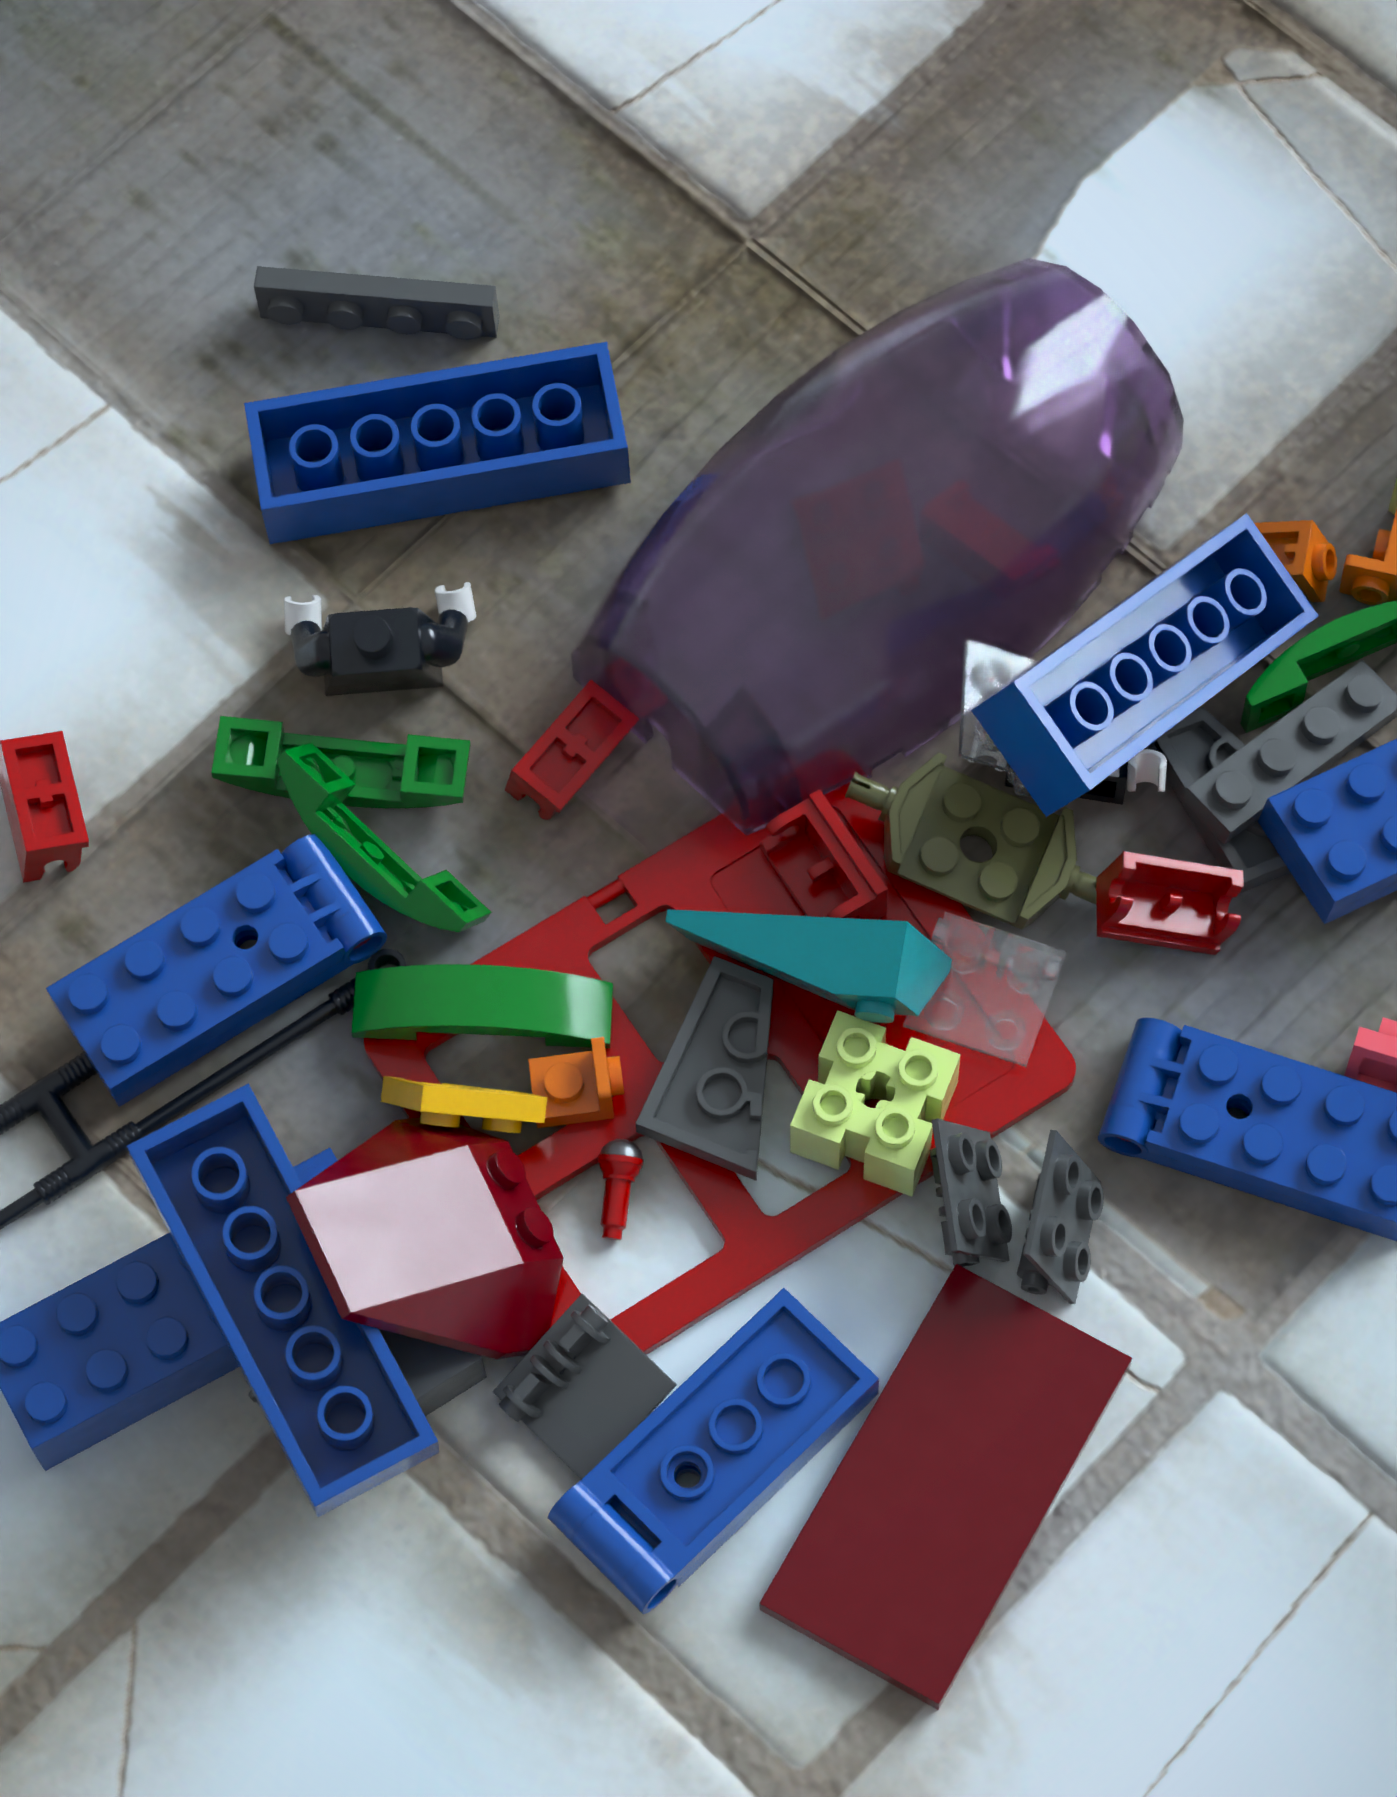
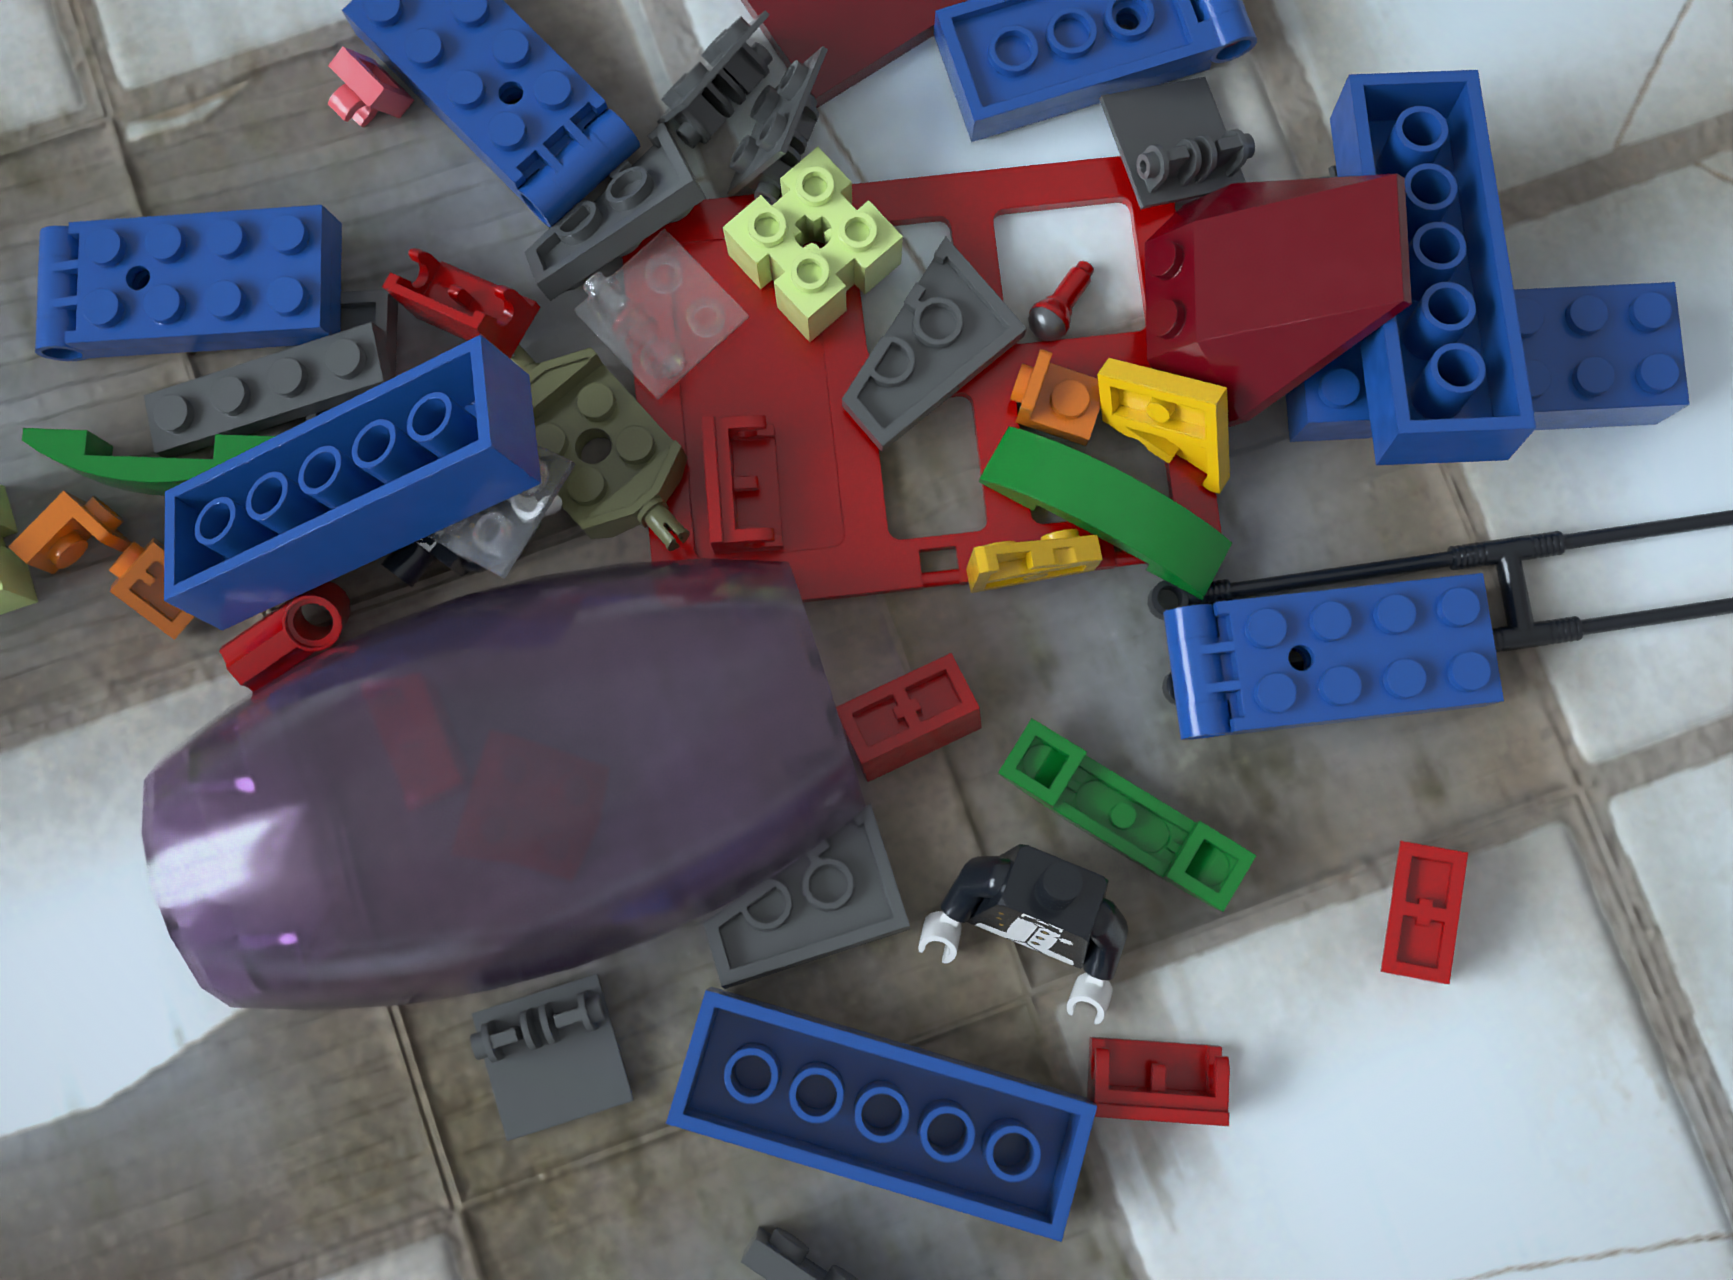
camera: 160 degrees left, 15 degrees up
(215, 575) = (1158, 1081): none -> red hinge
(317, 793) = (1143, 701): green slope -> none
(530, 915) = (1030, 561): none -> yellow wing
(565, 575) = (812, 909): none -> dark grey wing
(731, 368) = (551, 1057): none -> dark grey hinge
(857, 963) = (773, 346): teal wedge -> none
(1072, 1053) = (634, 206): none -> dark grey wing
(1157, 546) = (285, 637): none -> red piece

